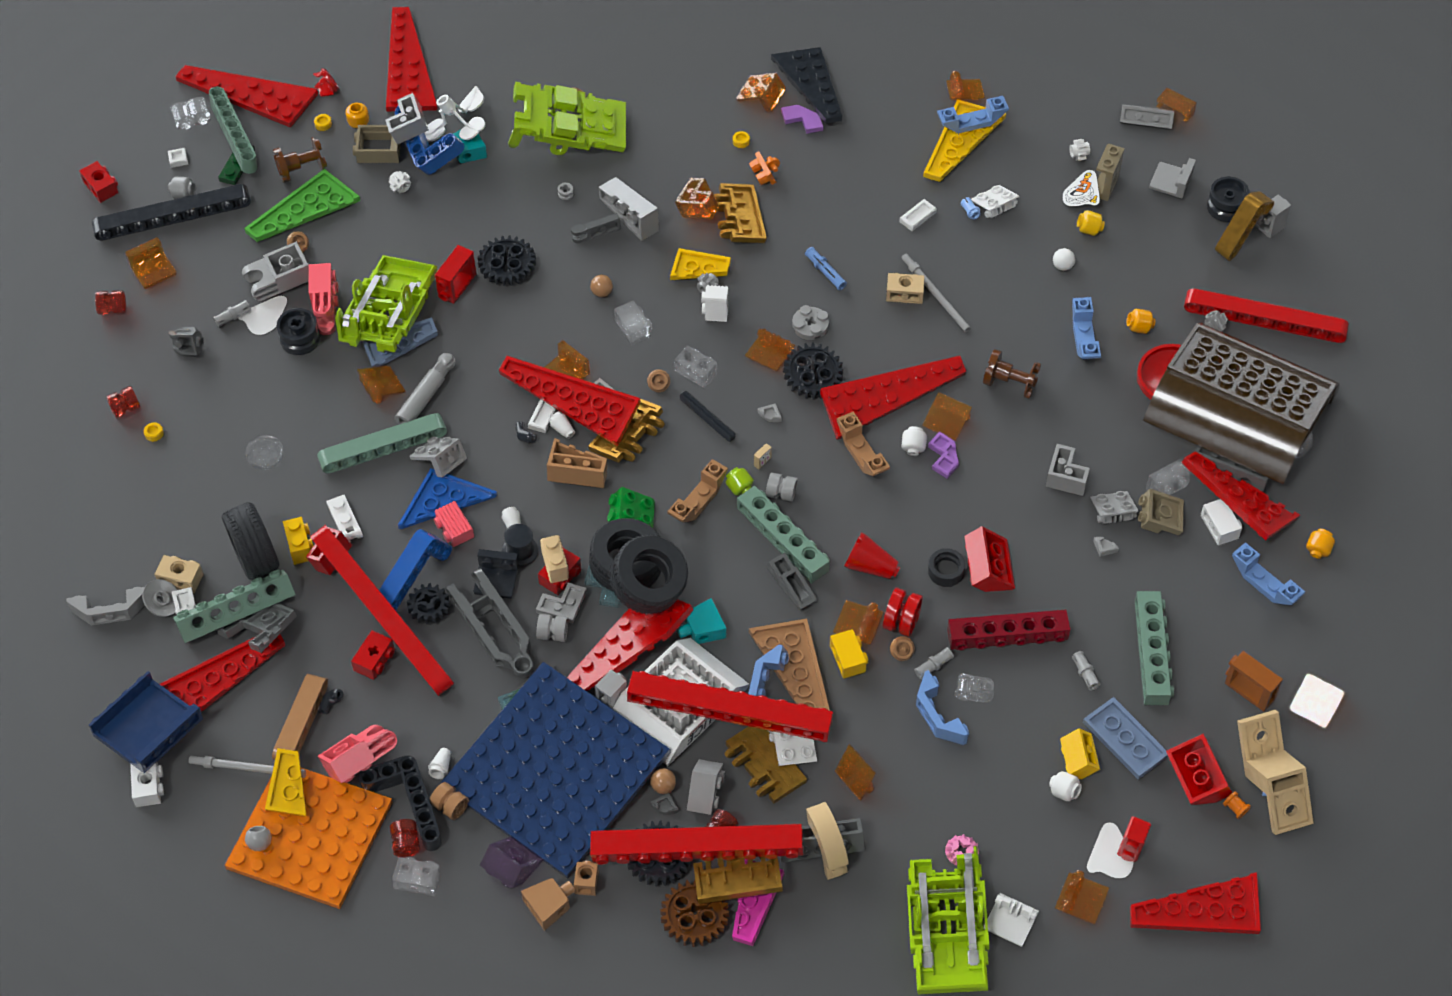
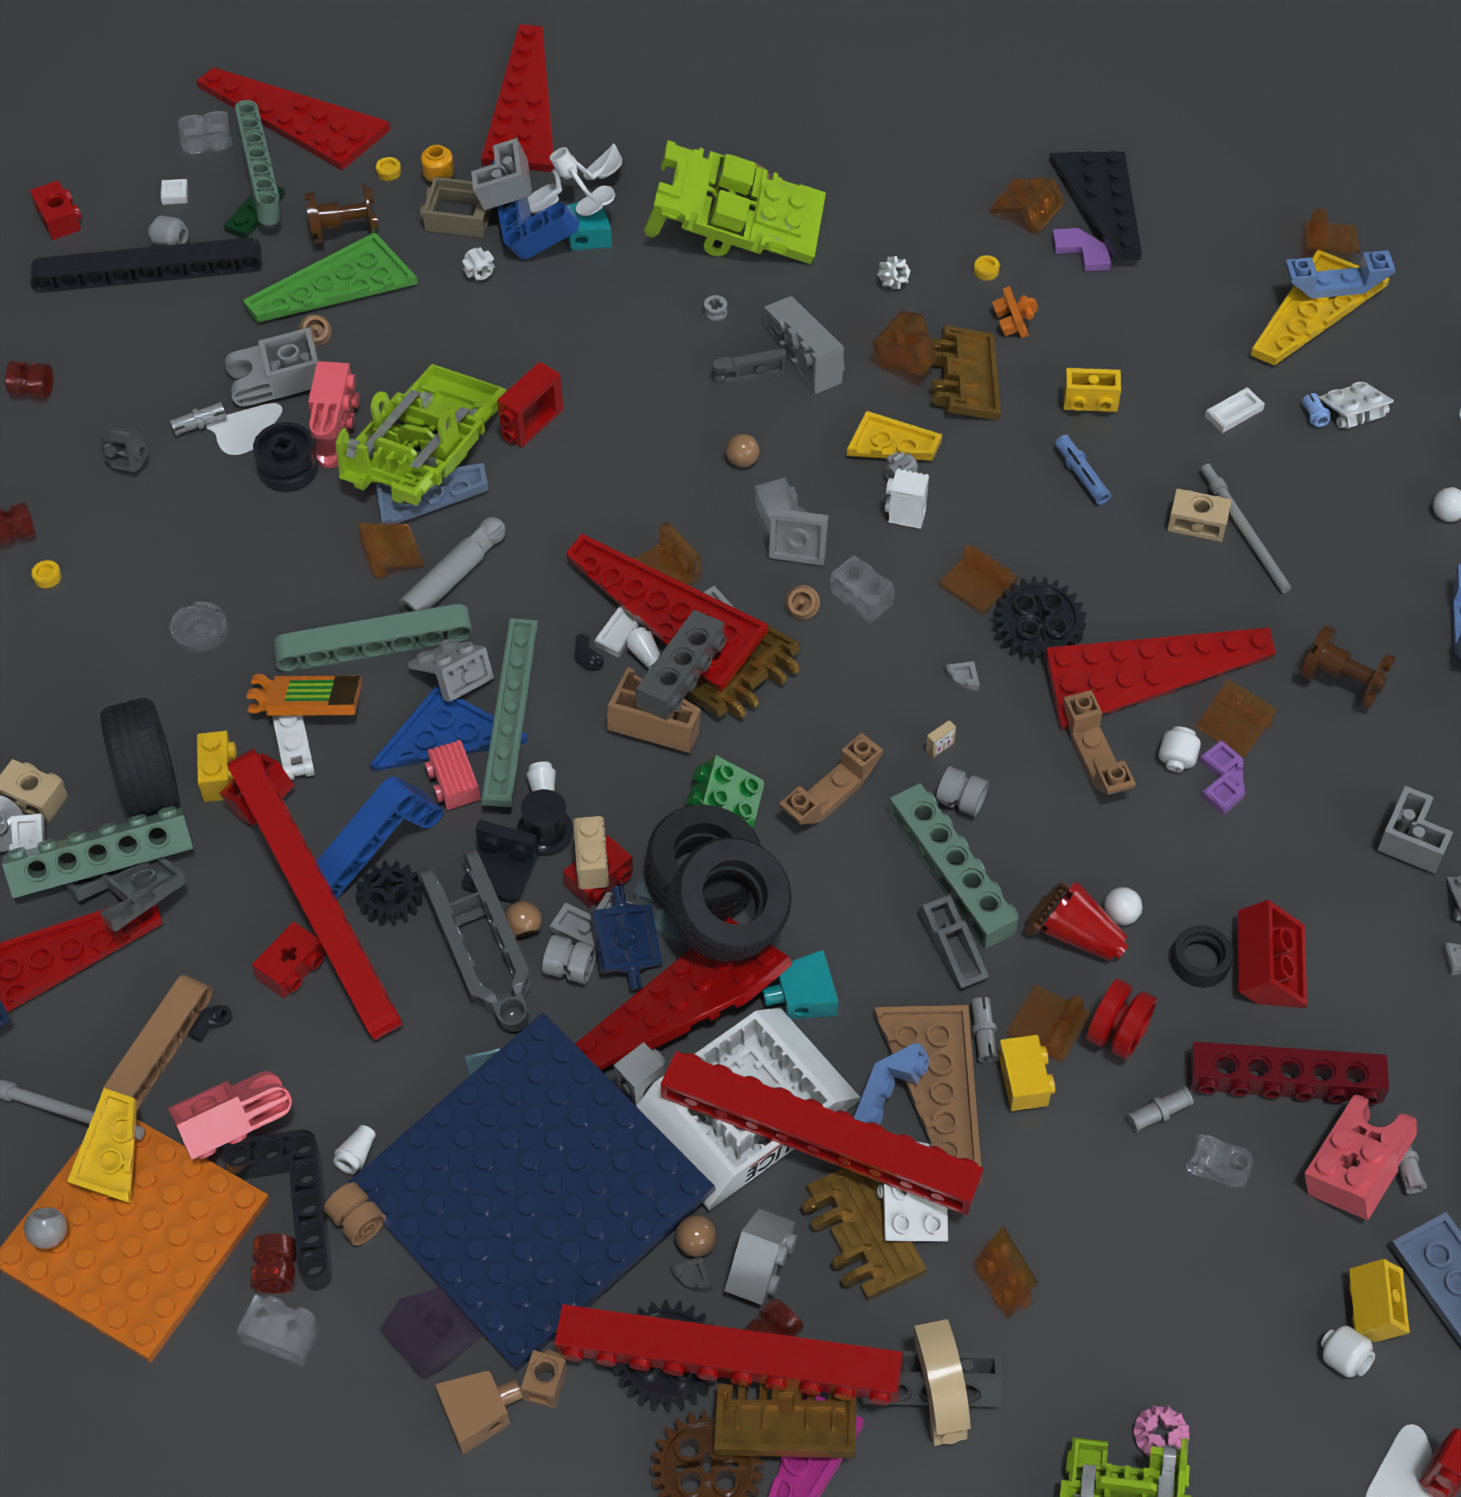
camera: 10 degrees right, 0 degrees up
(150, 263) = (98, 331): clear orange bracket -> none
(326, 85) = (404, 116): red piece -> none
(346, 486) = (305, 695): none -> orange tile
(482, 478) = (510, 713): none -> sand green tile
(518, 606) = (523, 918): none -> medium nougat piece
(519, 263) = (593, 389): black gear -> none
(586, 609) = (626, 938): none -> dark blue plate
(589, 432) = (680, 665): none -> dark grey brick
(649, 338) = (798, 536): none -> light grey plate
(680, 151) = (894, 272): none -> white gear
(707, 416) = (867, 666): black axle -> none
(739, 481) = (898, 772): lime head -> none
(813, 314) = (1047, 534): light grey plate -> none
(819, 632) = (984, 1030): none -> light grey pin
(823, 214) = (1092, 389): none -> yellow brick
(843, 554) = (1044, 906): none -> reddish brown piece
(893, 543) = (1123, 905): none -> white piece
(902, 648) = (1112, 1076): medium nougat hat -> none
(951, 731) = (1174, 1227): medium blue slope -> none
(1057, 674) = (1359, 1159): none -> coral brick

